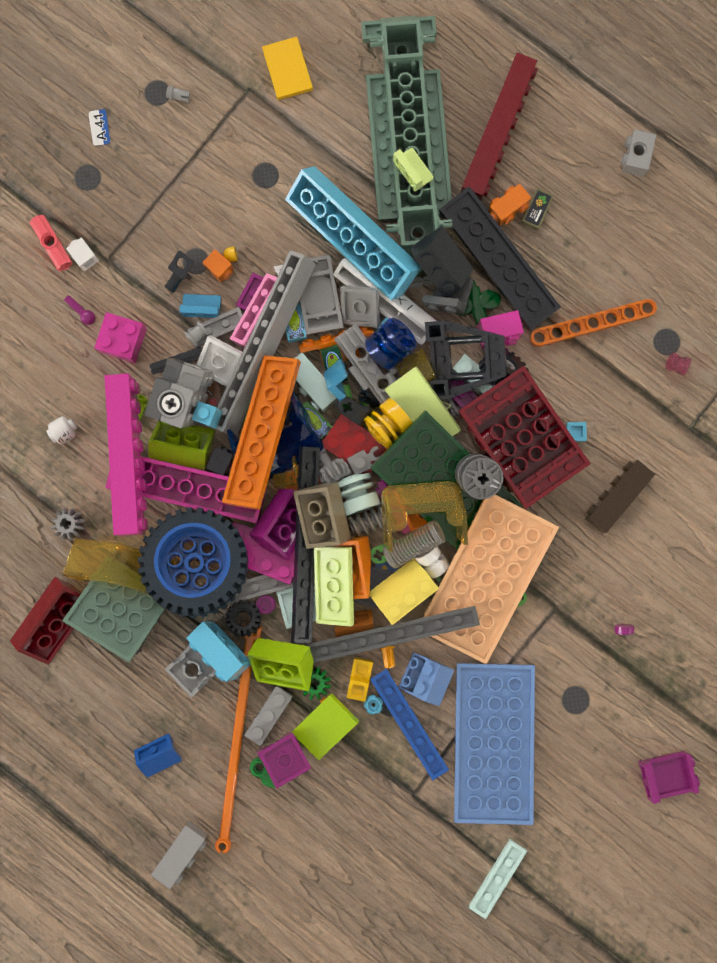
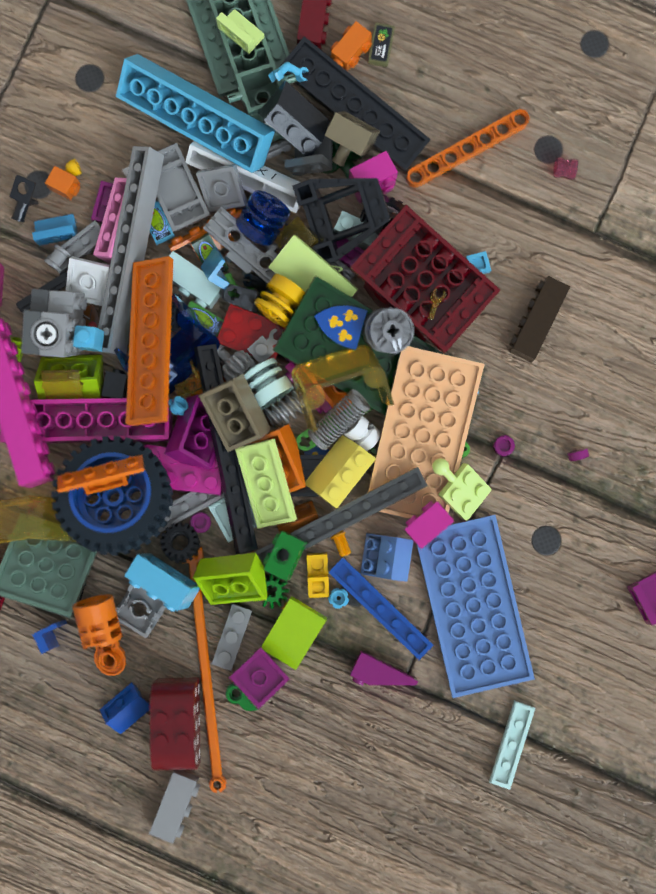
camera: 20 degrees left, 0 degrees up
(102, 675) = (46, 638): none -> blue panel
(153, 681) = (100, 628): none -> orange cylinder
(173, 450) = (62, 384): none -> clear yellow piece
(188, 543) = (101, 477): none -> orange bracket
(198, 782) = (175, 724): none -> dark red brick
(272, 495) = (178, 405): none -> medium azure plate
(345, 650) = (295, 548): none -> green brick
(390, 781) = (376, 672): none -> magenta slope
(438, 216) = (288, 67): none -> medium azure arm
(439, 460) = (342, 324): none -> blue sticker
(471, 660) = (429, 524): none -> dark pink brick
(489, 288) = (351, 135): none -> dark tan brick
(511, 636) = (464, 488): none -> yellowish green plate
(529, 460) = (435, 301): none -> clear yellow hand
(558, 603) = (503, 445): none -> magenta tile

